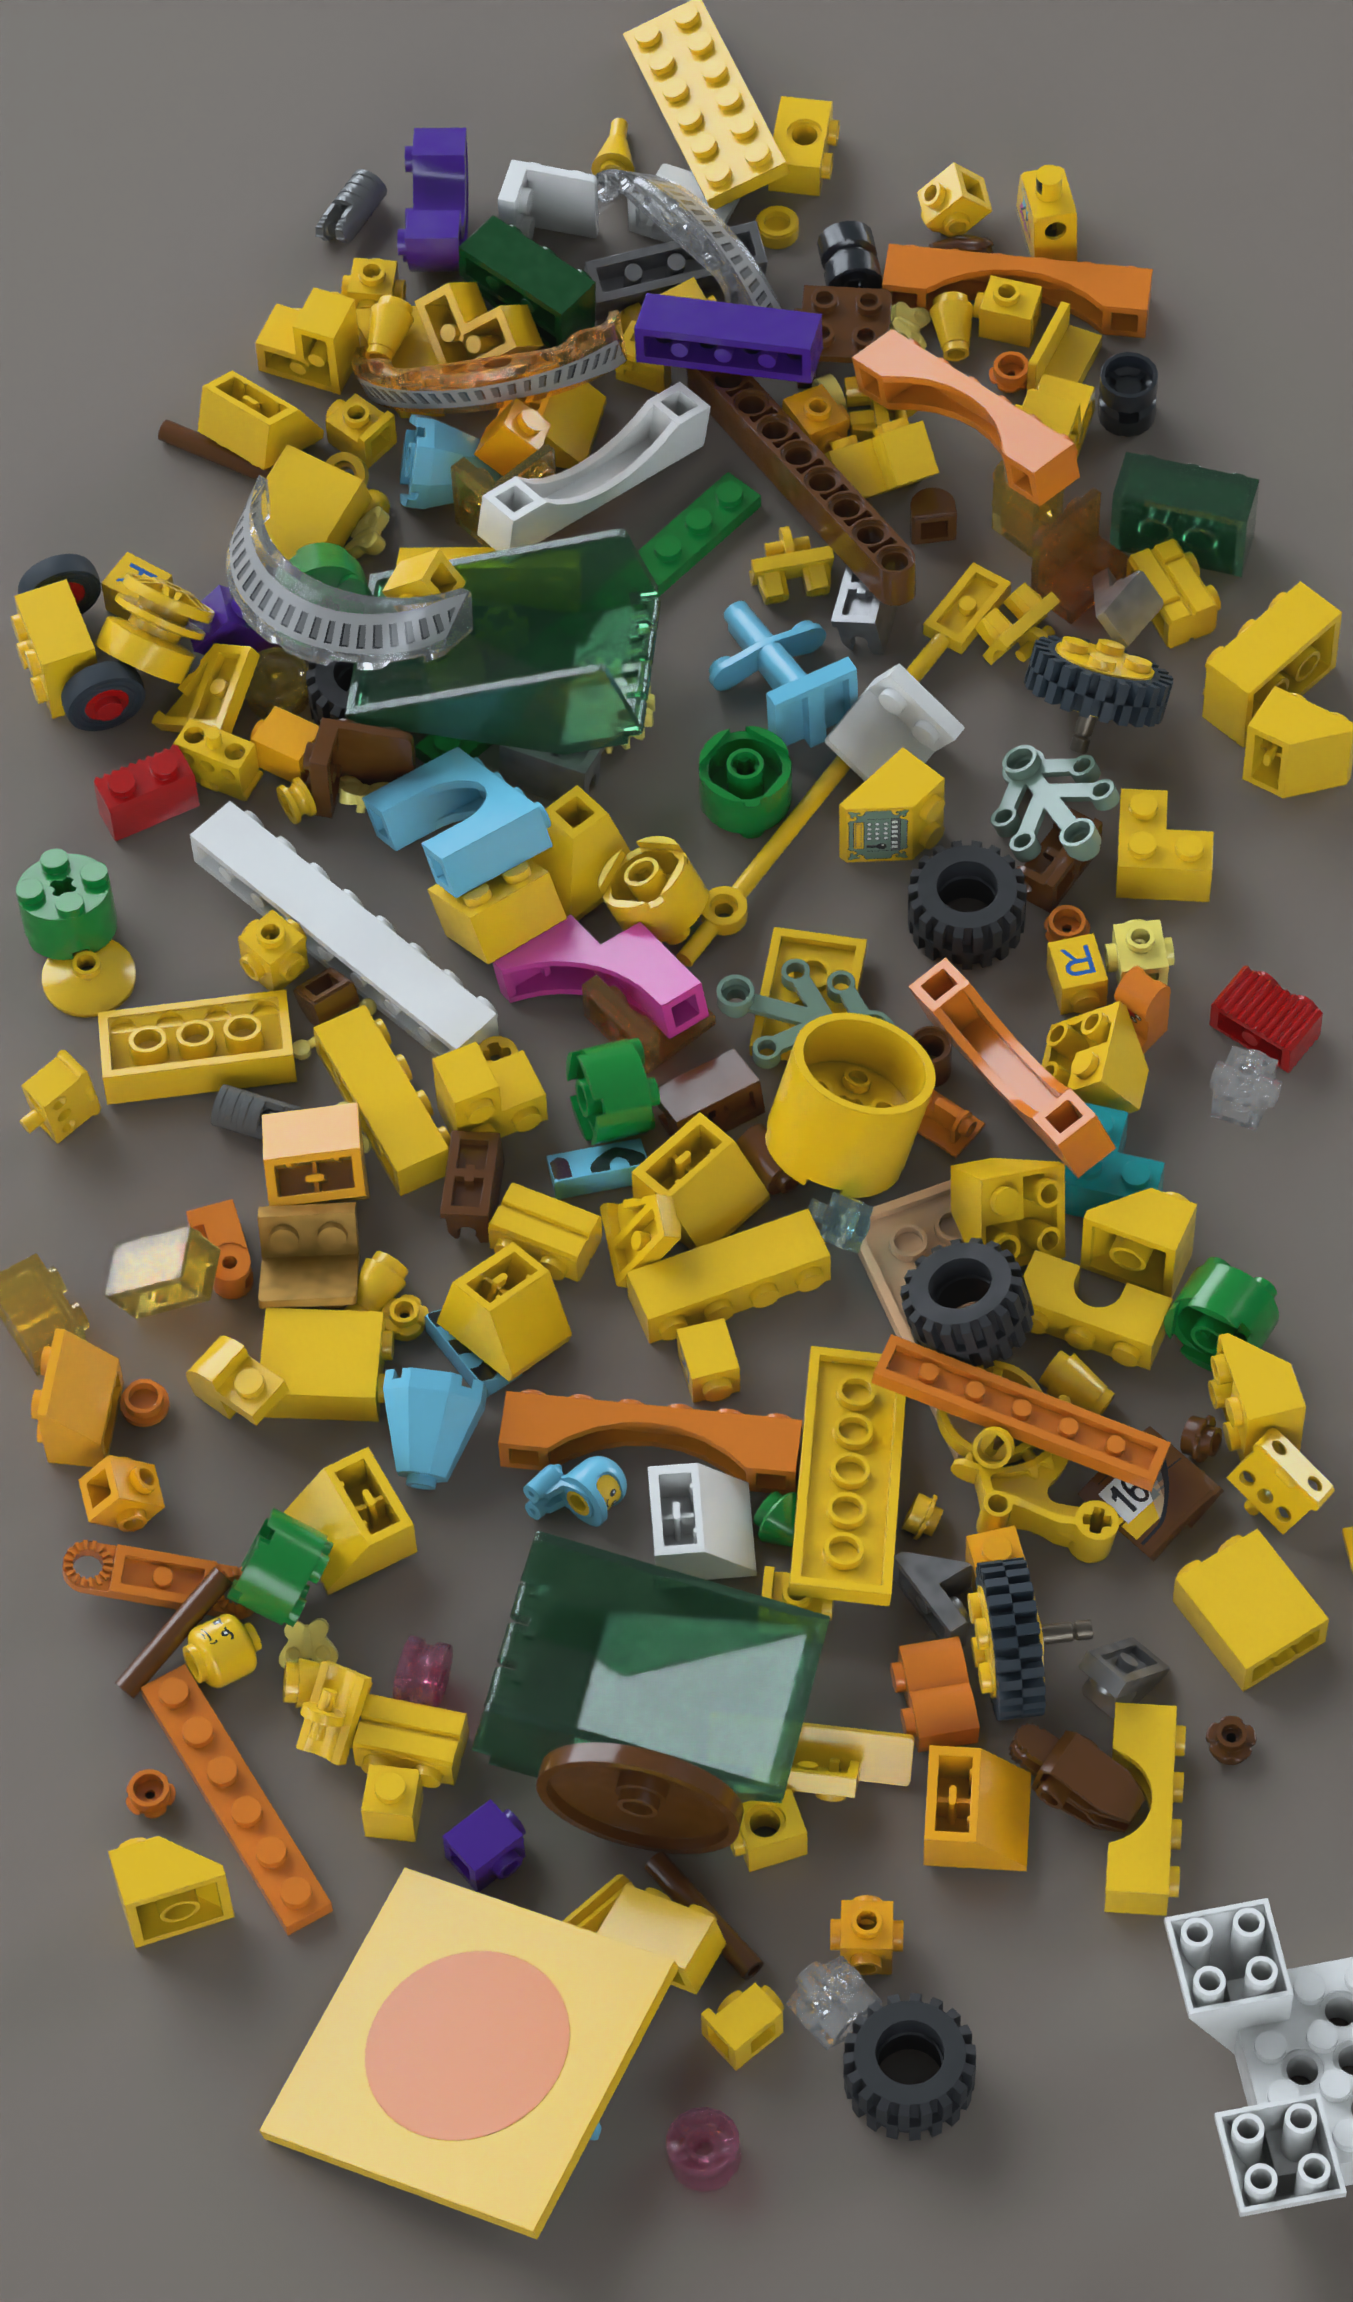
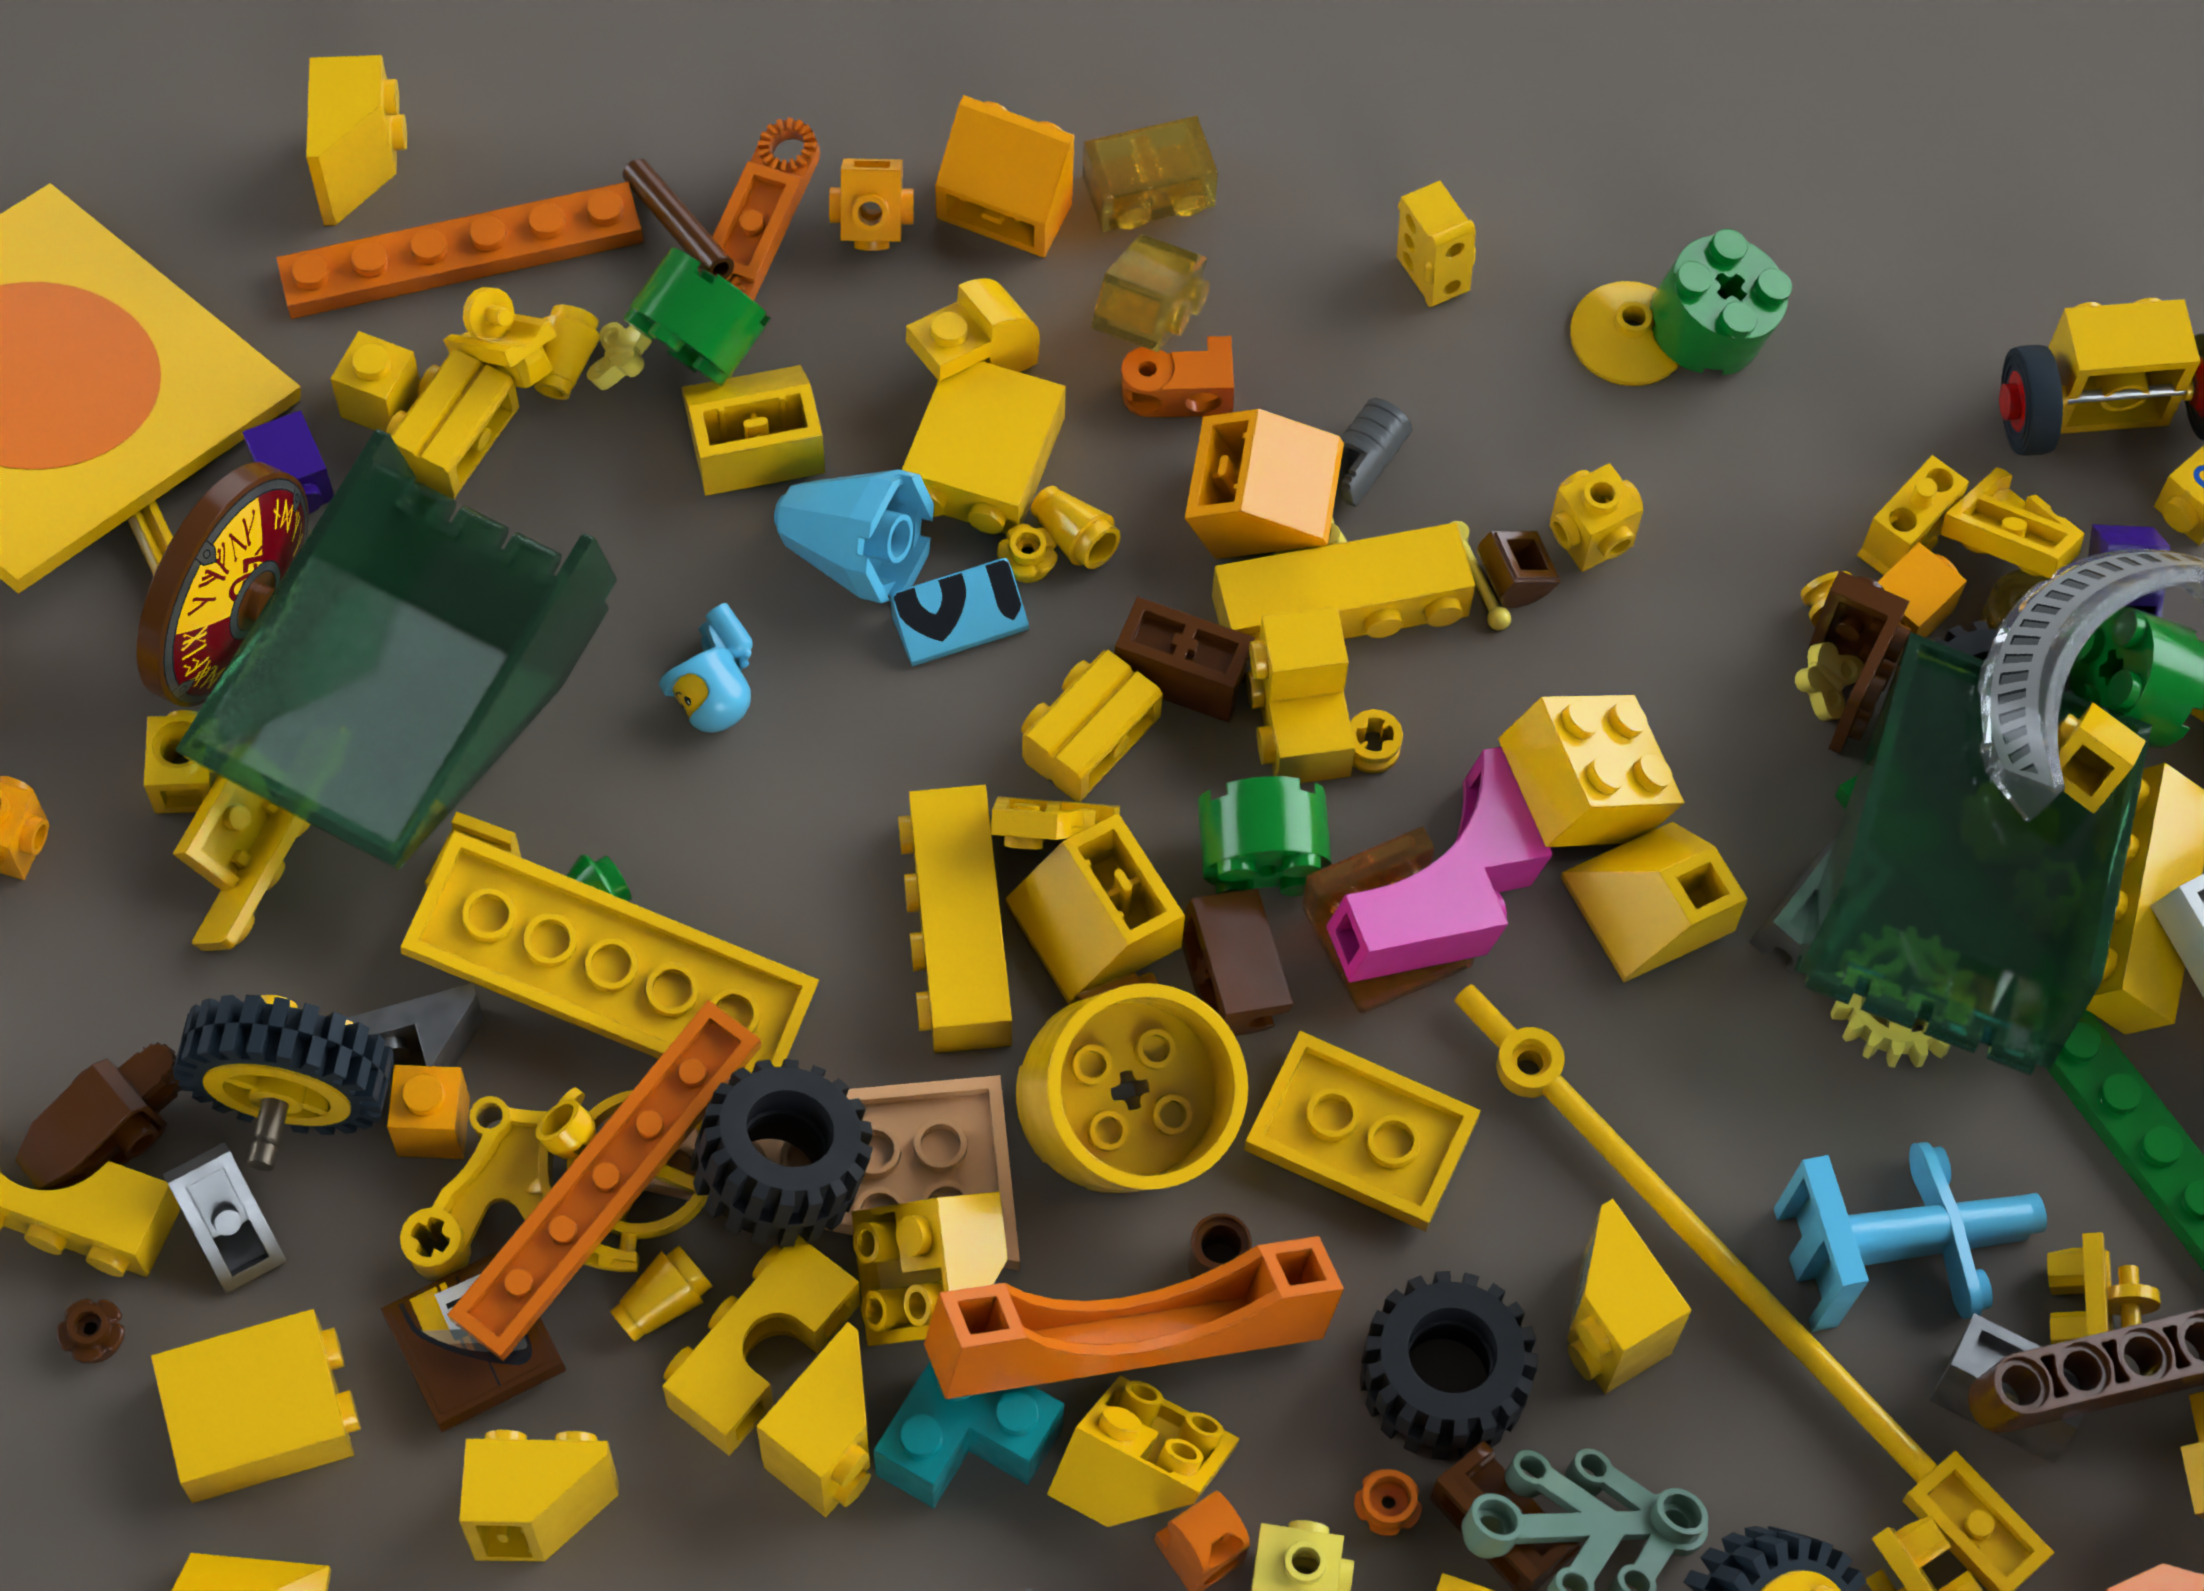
camera: 100 degrees right, 5 degrees up
(144, 1403) = (1001, 259): orange plate -> none
(146, 793) = (1876, 427): red brick -> none
(149, 1781) = (494, 154): orange plate -> none
(155, 627) = (2116, 462): yellow wheel -> none
(196, 1046) = (1487, 416): yellow slope -> none
(222, 1651) = (630, 254): yellow head -> none
(309, 1255) = (1121, 454): pearl gold bracket -> none
(342, 933) = (1602, 605): white brick -> none
(423, 1672) = (524, 447): clear pink wheel -> none
(497, 829) = (1681, 779): medium azure arch -> none
(506, 1312) = (971, 642): yellow slope -> none
(555, 1429) = (703, 872): orange arch -> none
(595, 1168) = (1173, 813): medium azure slope -> none
(654, 888) = (1561, 962): yellow brick -> none
(669, 1929) = (83, 608): yellow brick -> none
(683, 1892) = (81, 688): reddish brown piece -> none
(701, 1521) = (611, 786): white slope -> none
(708, 1361) = (842, 862): yellow brick -> none
(745, 780) = (1693, 1138): green brick -> none
(815, 1006) = (1309, 1112): sand green plant -> none
(843, 1220) = (978, 1059): clear light blue plate -> none
(889, 716) = (1758, 1338): white bracket -> none
(922, 1516) = (540, 1054): yellow plate -> none
(932, 516) = (2152, 1520): reddish brown brick -> none
(936, 1694) = (311, 976): orange brick -> none
(949, 1125) = (1135, 1239): orange hinge -> none
(976, 1810) = (104, 984): light orange slope -> none
(1077, 974) = (1297, 1483): yellow brick -> none
(1201, 1438) = (528, 1416): reddish brown plate -> none
(1220, 1302) = (677, 1494): green brick -> none
(1279, 1481) = (402, 1491): yellow piece -> none

